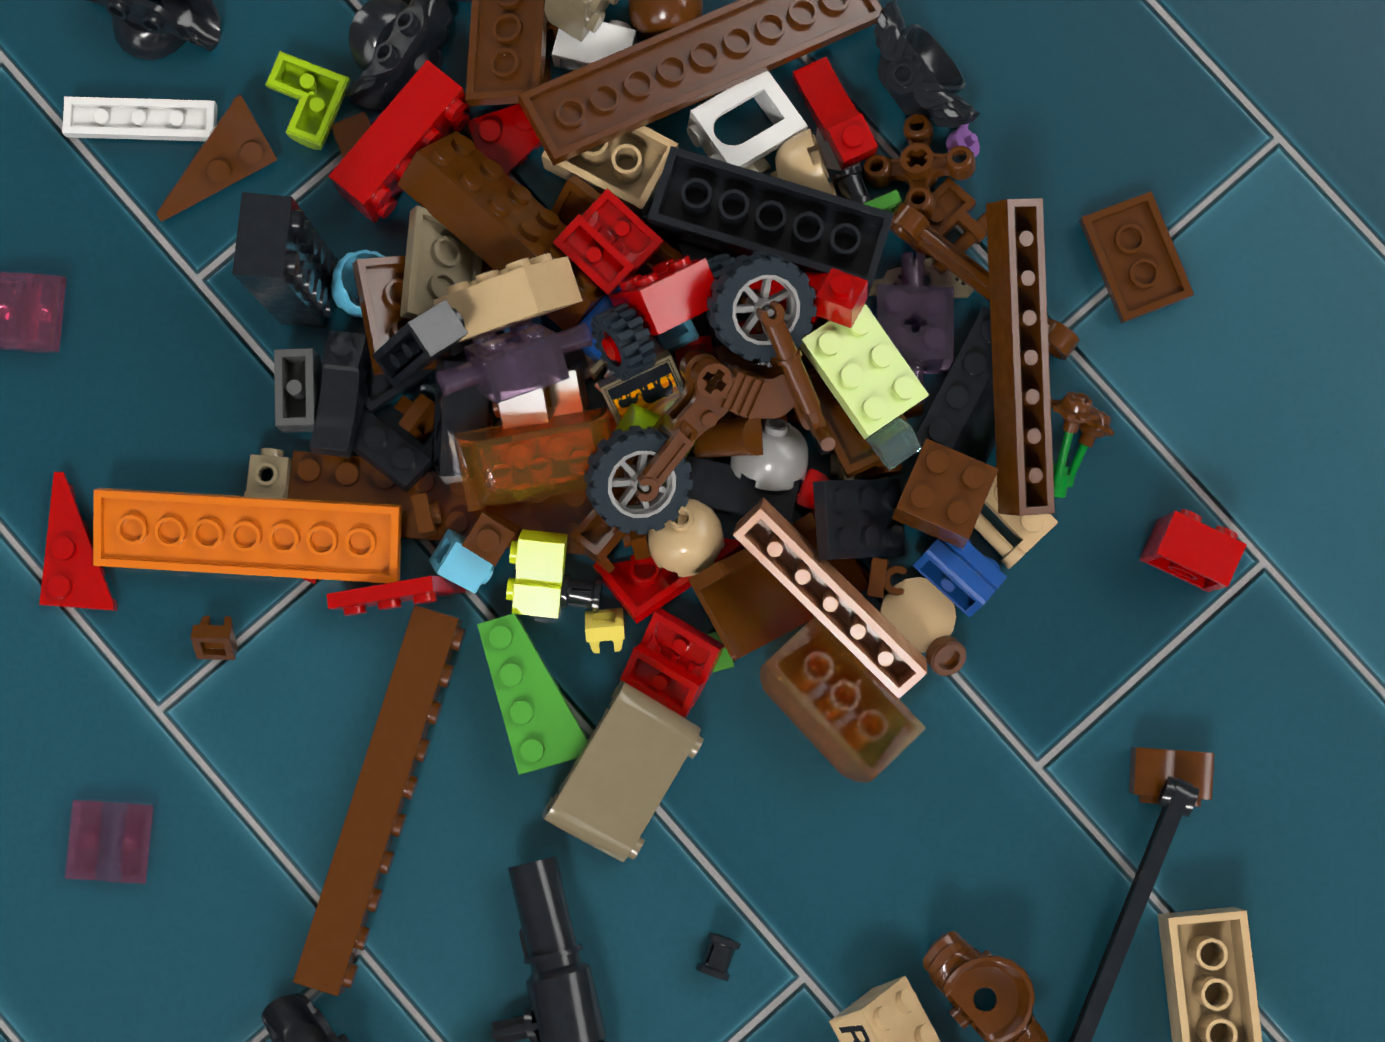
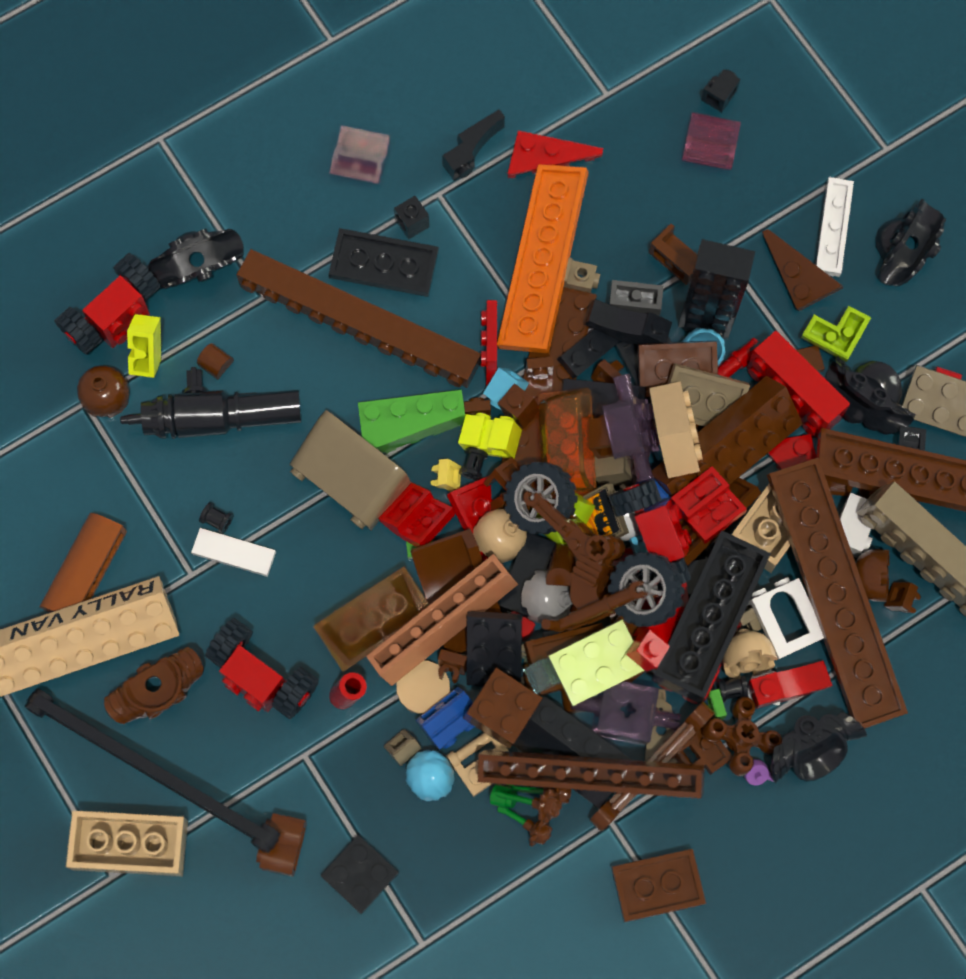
camera: 100 degrees right, 10 degrees down
(101, 683) = (461, 159): none -> black slope
(205, 744) = (411, 217): none -> black brick
(214, 640) = (477, 231): reddish brown tile -> none
(216, 340) = (674, 254): none -> reddish brown panel
(283, 776) = (383, 262): none -> black plate
(365, 232) = (737, 359): none -> red pin
(420, 342) = (651, 367): black brick -> none
(474, 1005) = (214, 360): none -> reddish brown brick
(495, 598) = (477, 405): none -> reddish brown plate
(764, 921) = (233, 552): none -> white tile
(946, 655) = (391, 701): reddish brown tile -> none
(949, 717) = (347, 690): none -> red brick
(951, 854) = (253, 678): none -> brick
(1008, 630) = (402, 747): none -> dark tan brick
(1041, 586) = (430, 775): none -> medium azure hair
(1189, 661) = (359, 874): none -> black plate
(1193, 550) = (437, 883): red brick -> none

